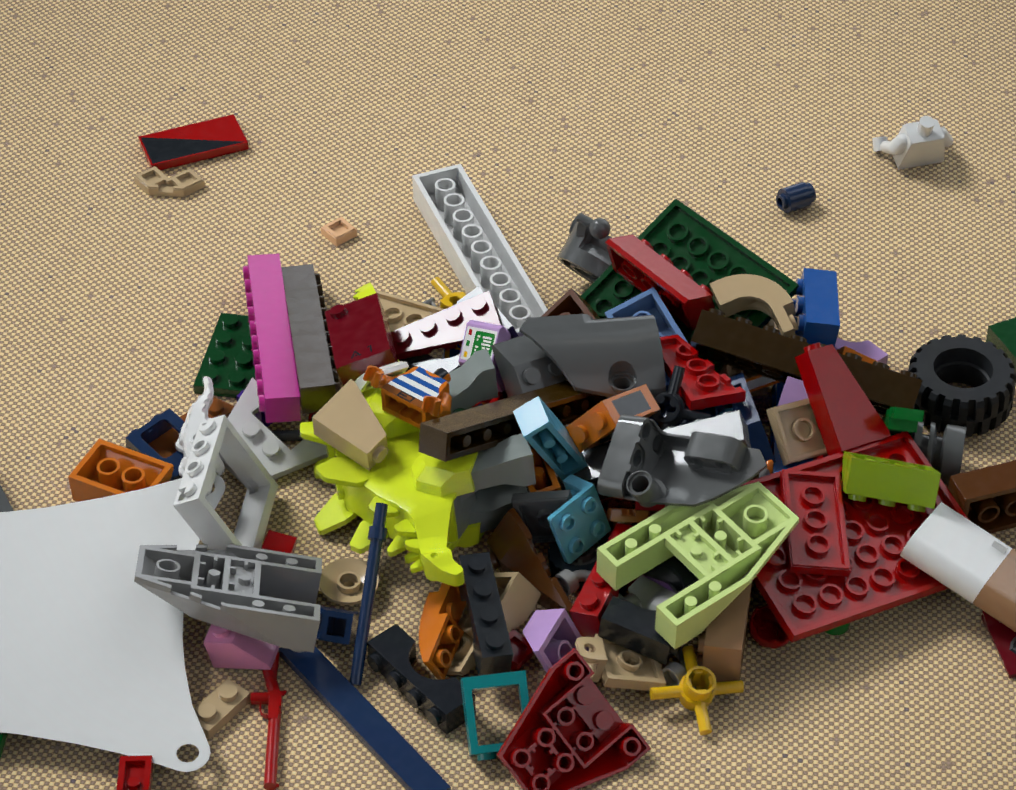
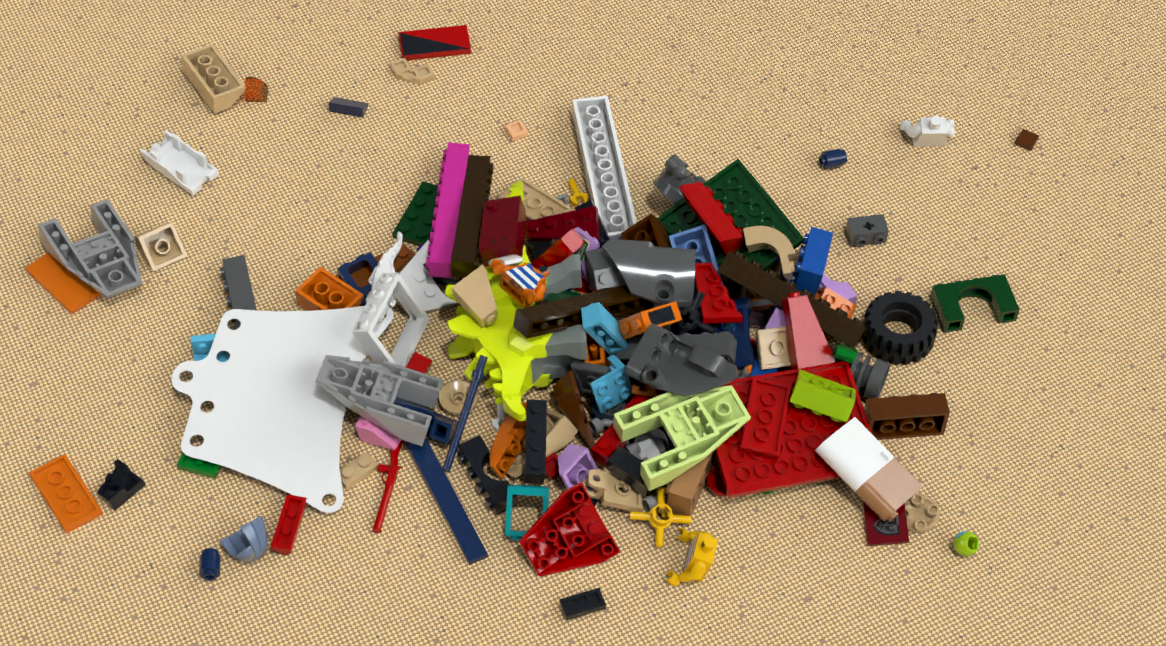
camera: 10 degrees right, 10 degrees up
(87, 239) = (348, 107): none -> dark blue slope
(418, 597) = (501, 417): none -> white bar
(458, 347) = (560, 250): none -> red arch
(771, 732) = (698, 559): none -> yellow torso
(871, 275) = (867, 230): none -> dark grey brick

